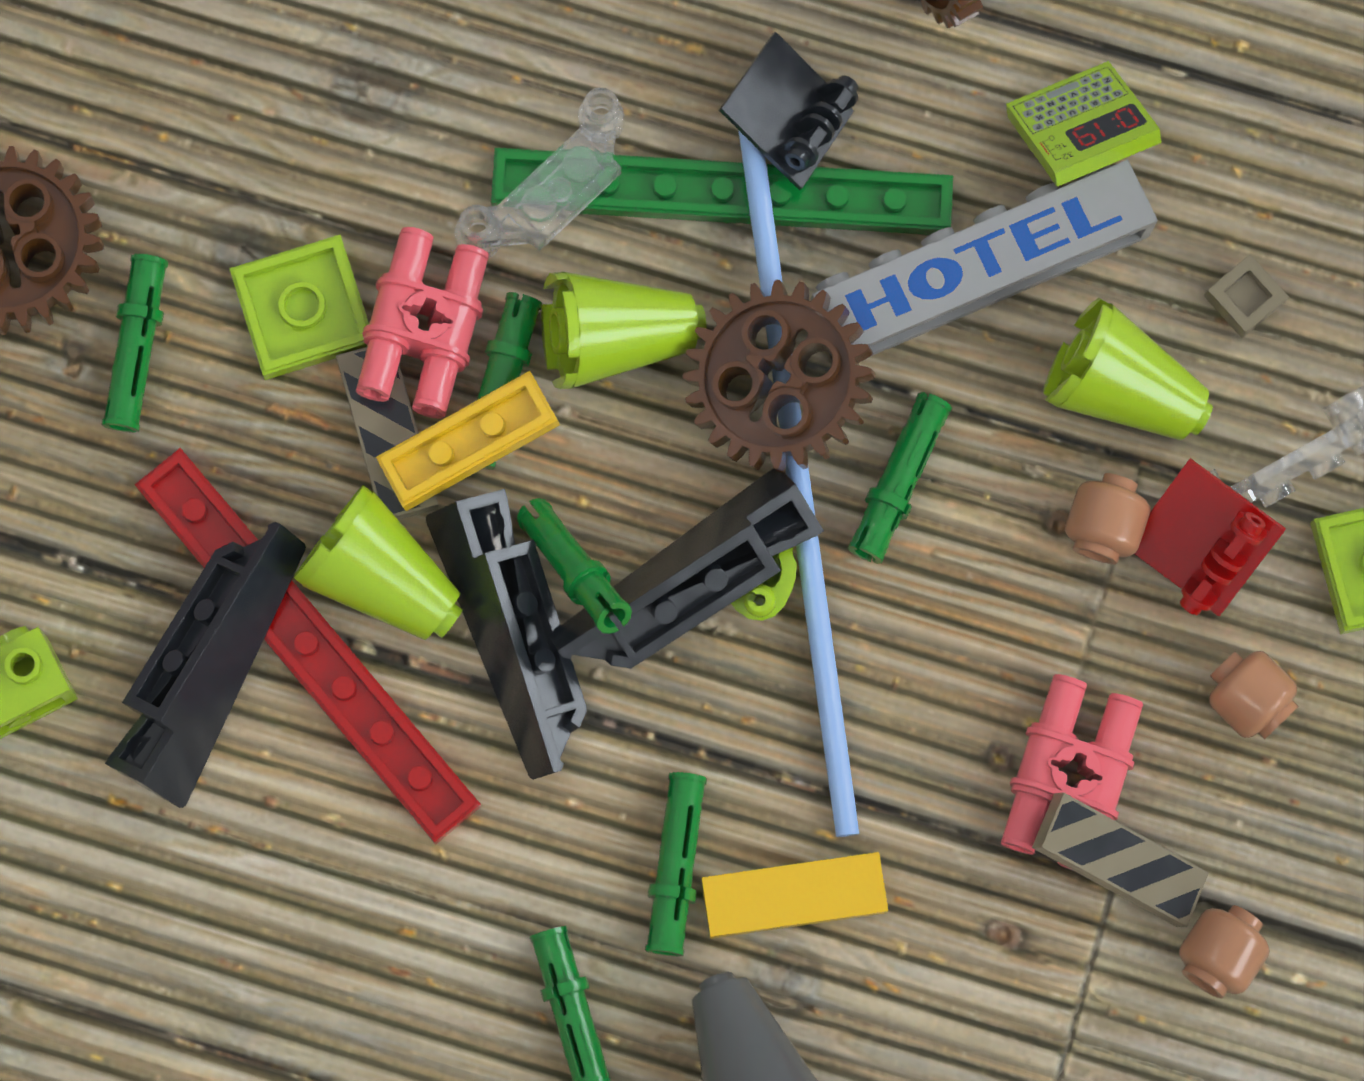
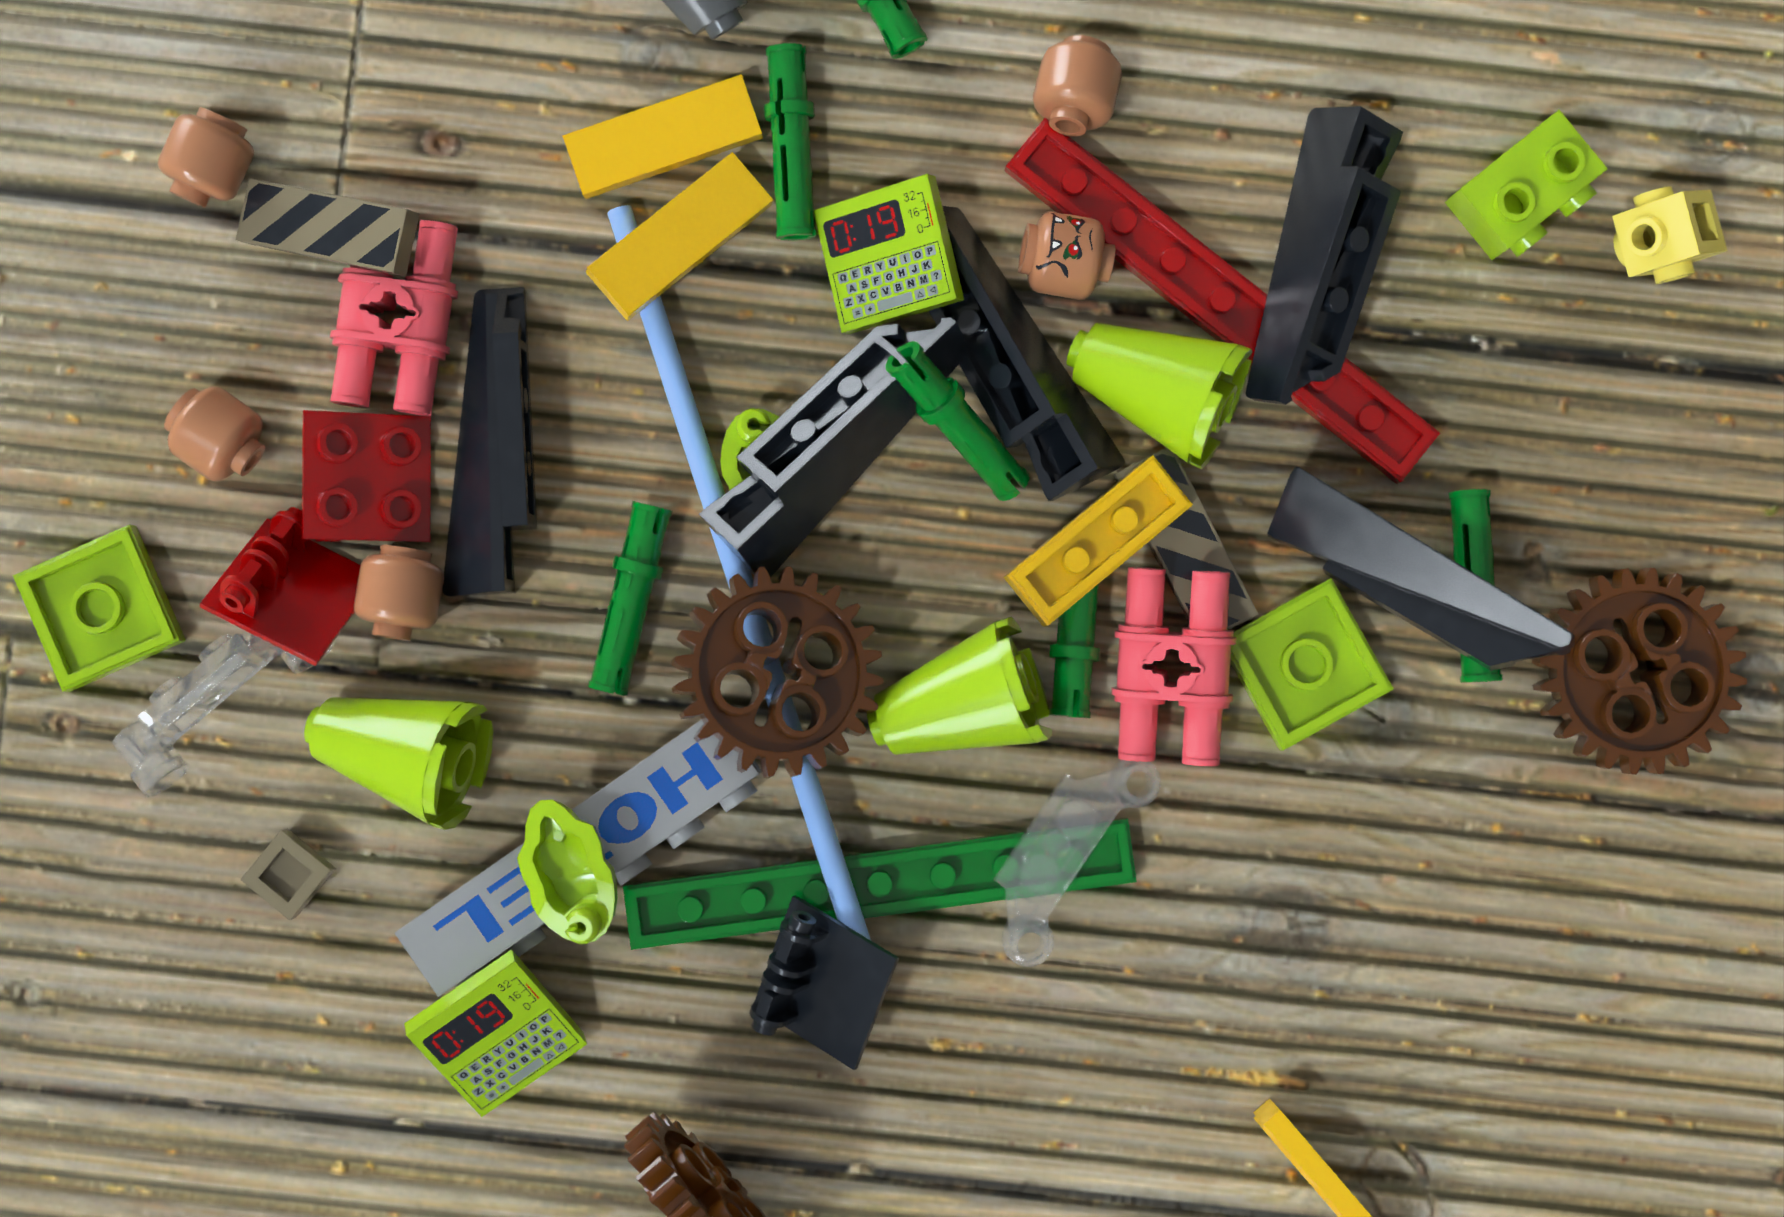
camera: 175 degrees right, 10 degrees up
(194, 353) = (1411, 577): none -> black wedge
(398, 862) = (1078, 85): none -> nougat head
(443, 705) = (1065, 255): none -> nougat head
(606, 738) = (888, 254): none -> lime tile
(795, 793) = (679, 236): none -> yellow tile
(995, 233) = (567, 873): none -> lime arm
(1001, 635) = (494, 450): none -> black wedge
(1122, 630) = (366, 477): none -> red hinge

